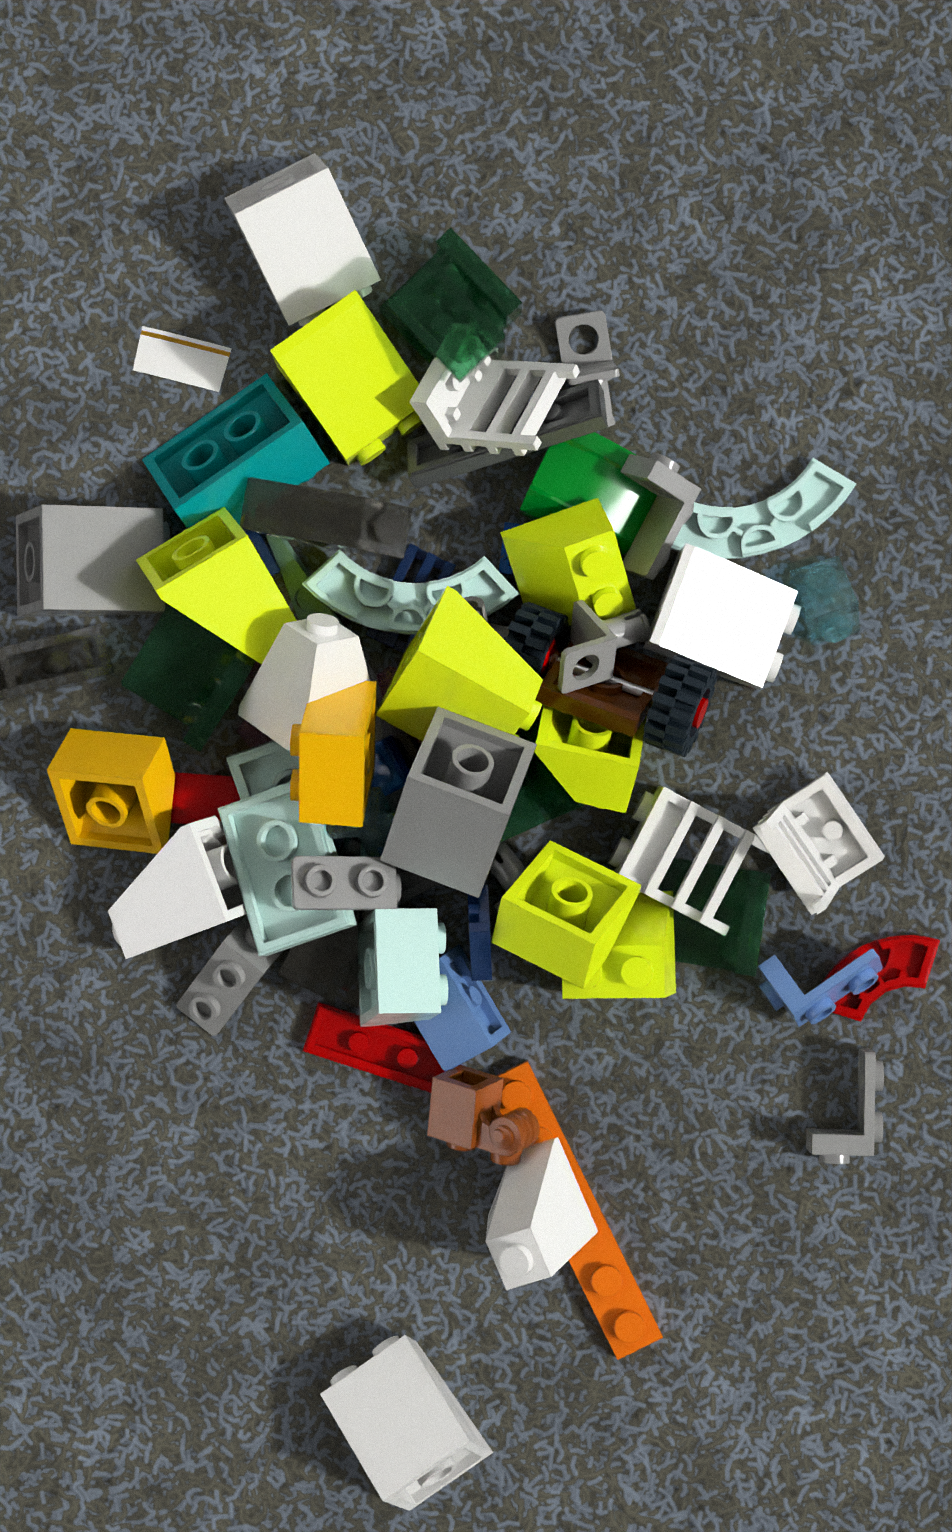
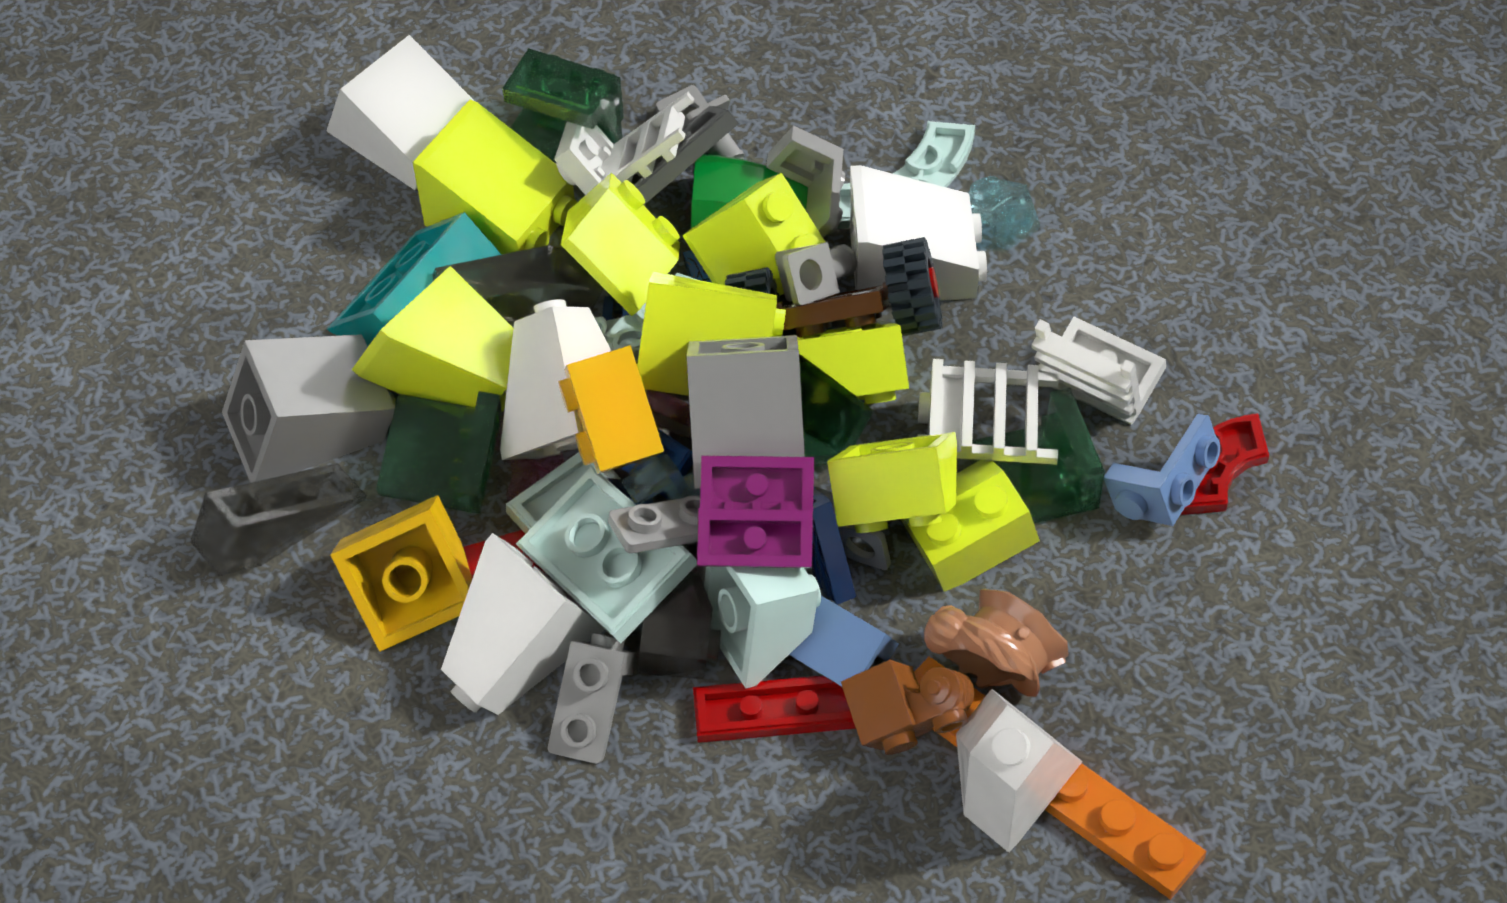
camera: 20 degrees left, 35 degrees down
(181, 358) = (333, 247): white sticker -> none
(417, 921) = (756, 512): none -> magenta slope
(434, 521) = (620, 241): none -> neon yellow slope
(581, 1091) = (999, 643): none -> nougat piece
(837, 1145) = (1276, 601): light grey bracket -> none

